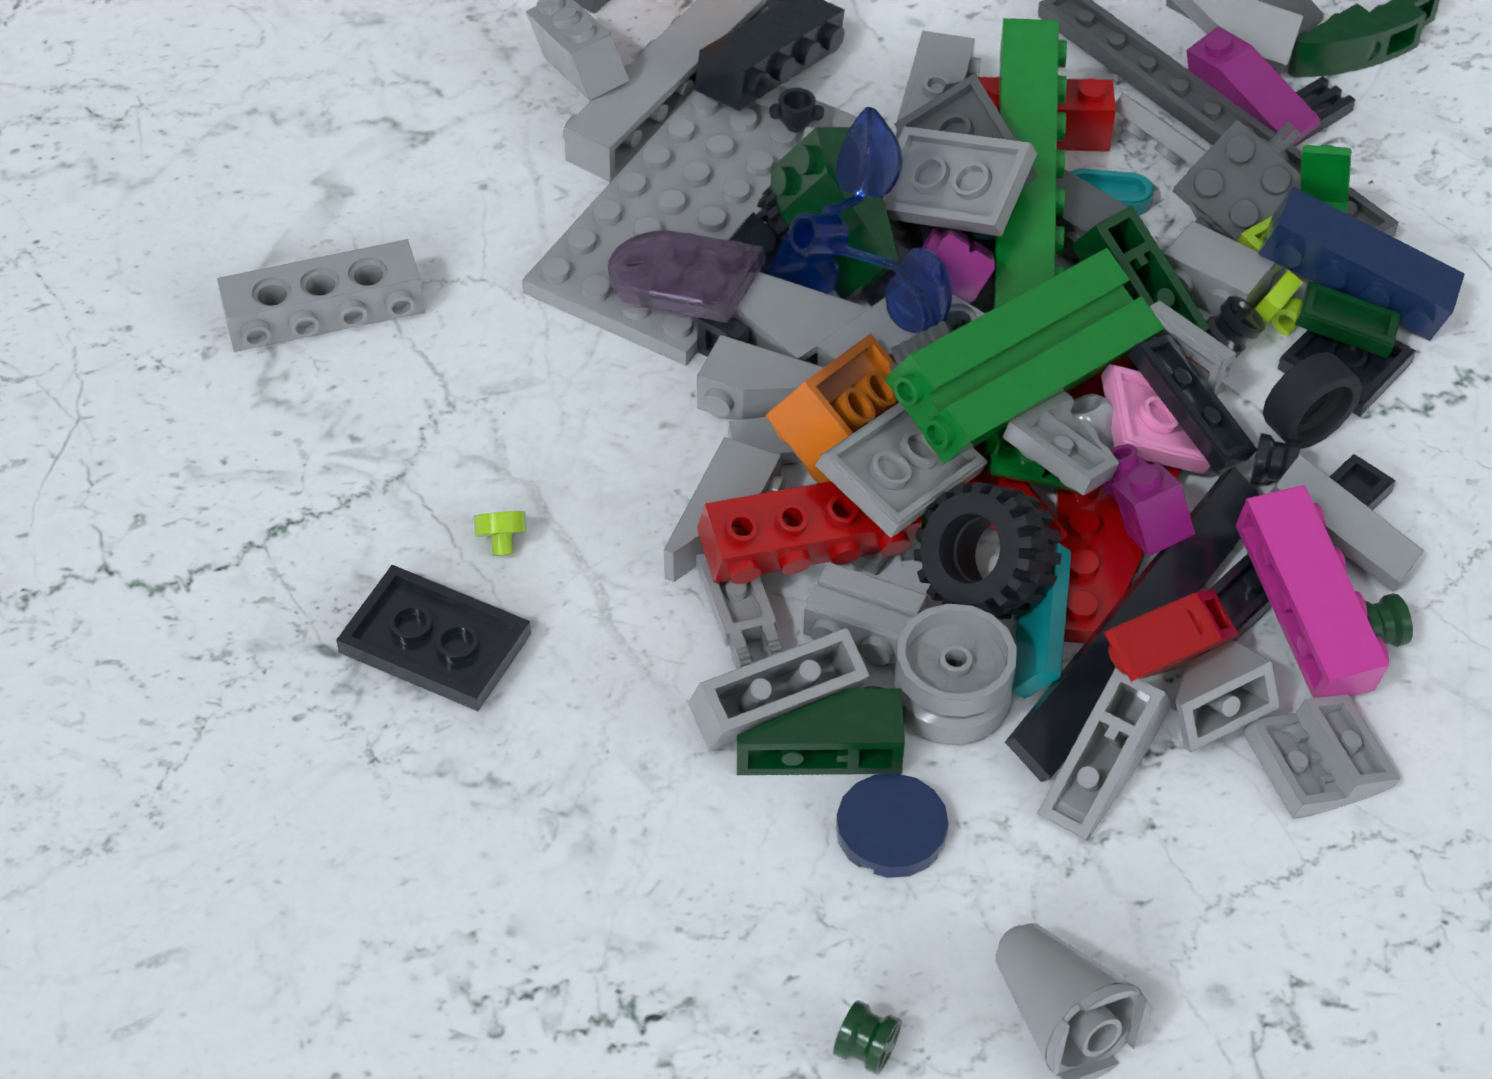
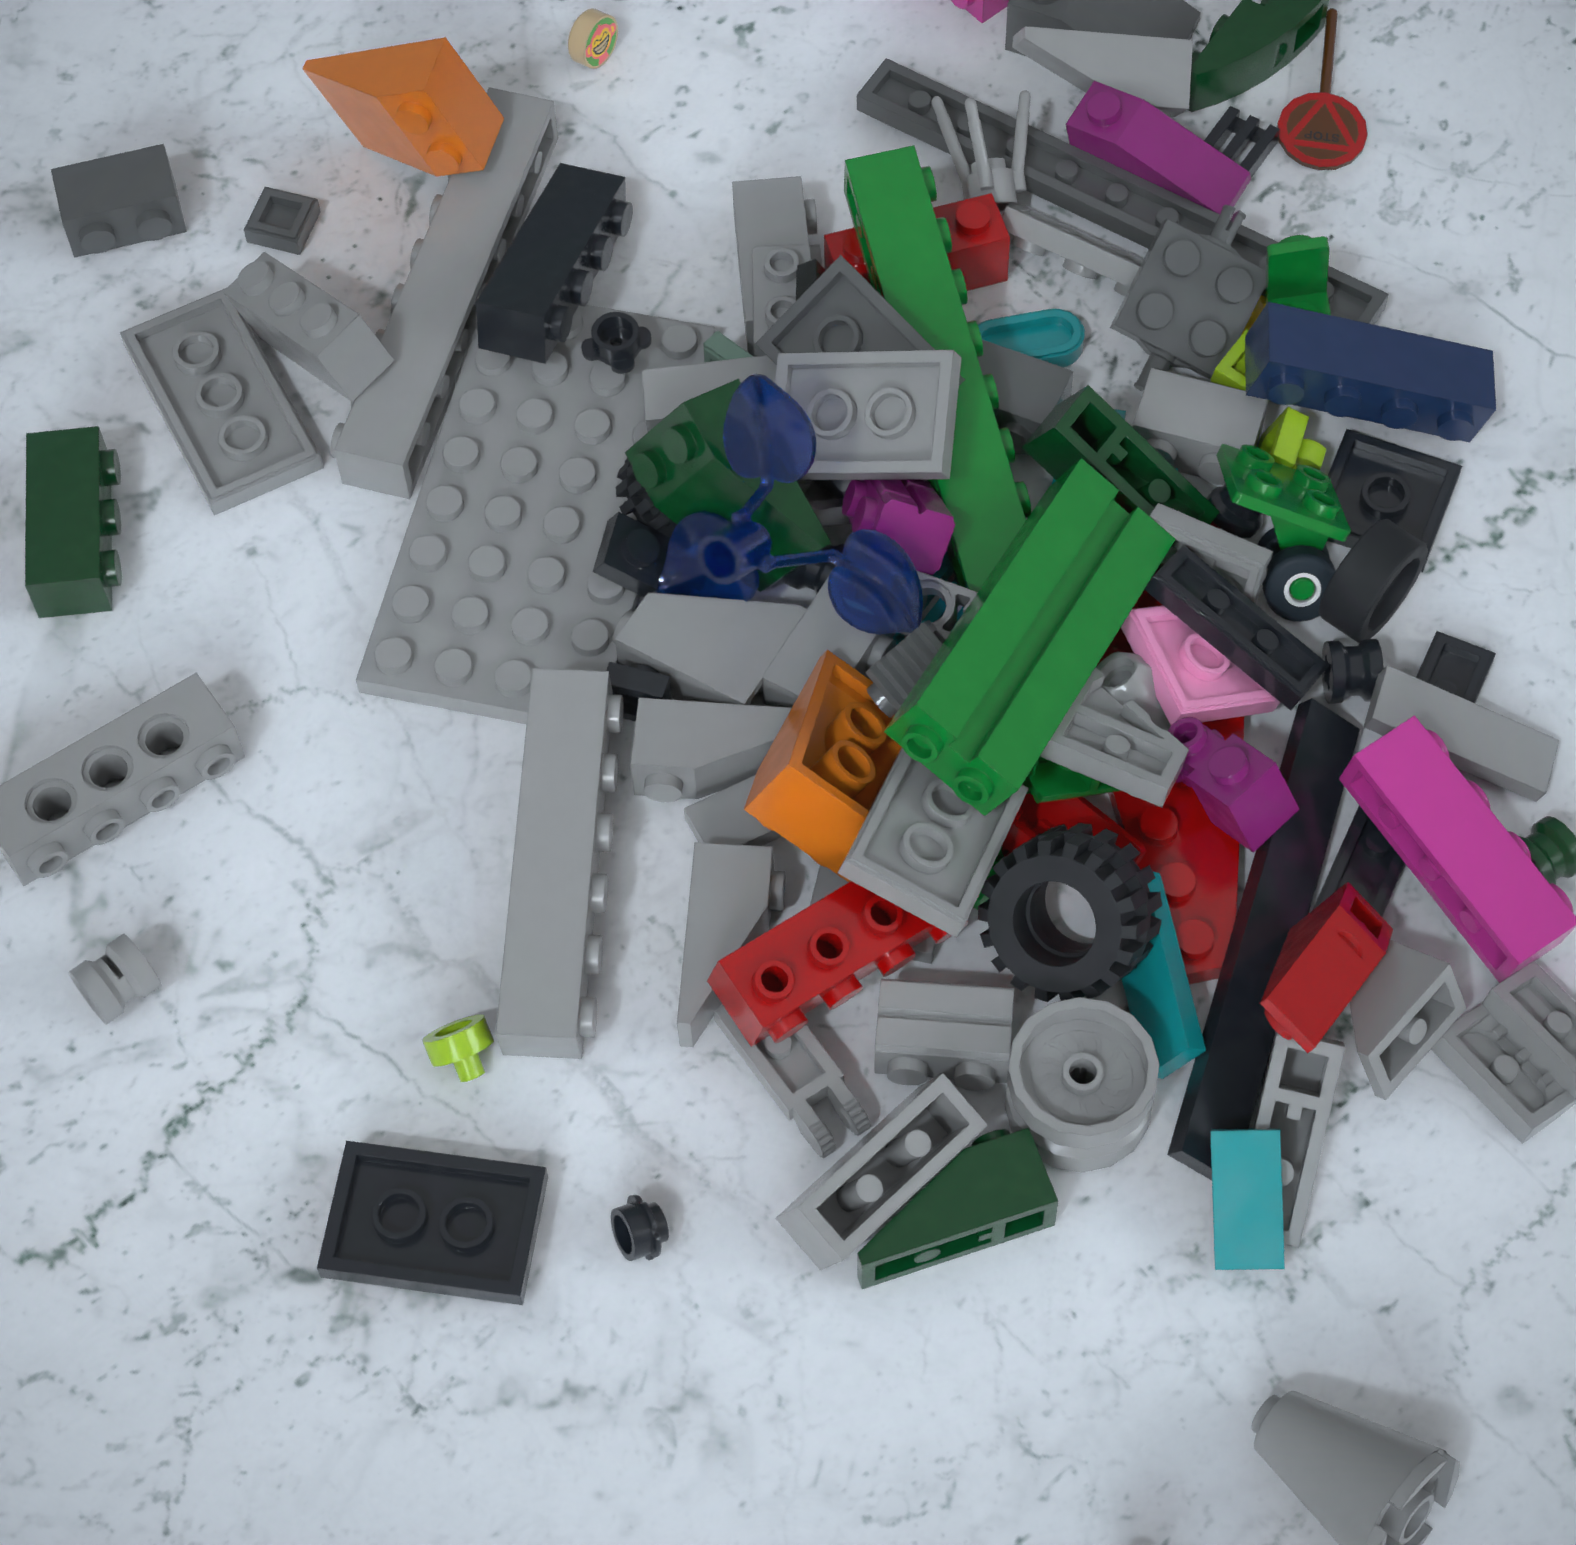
camera: 15 degrees left, 10 degrees up
(271, 420) = (103, 989): none -> light grey wheel
(361, 131) = (71, 522): none -> dark green brick
(500, 88) = (221, 401): none -> light grey tile
(584, 683) = (639, 1228): none -> black plate
(617, 428) = (557, 865): none -> light grey brick
(684, 273) = (563, 620): clear purple plate -> none
(892, 825) = (1070, 1302): dark blue tile -> none
(1055, 787) = (1247, 1199): none -> teal tile
(1120, 69) = (988, 174): none -> light grey plant
(1272, 344) = (1303, 518): none -> green plate
(1348, 319) = (1376, 451): dark green tile -> none
(1390, 108) = (1322, 127): none -> piece

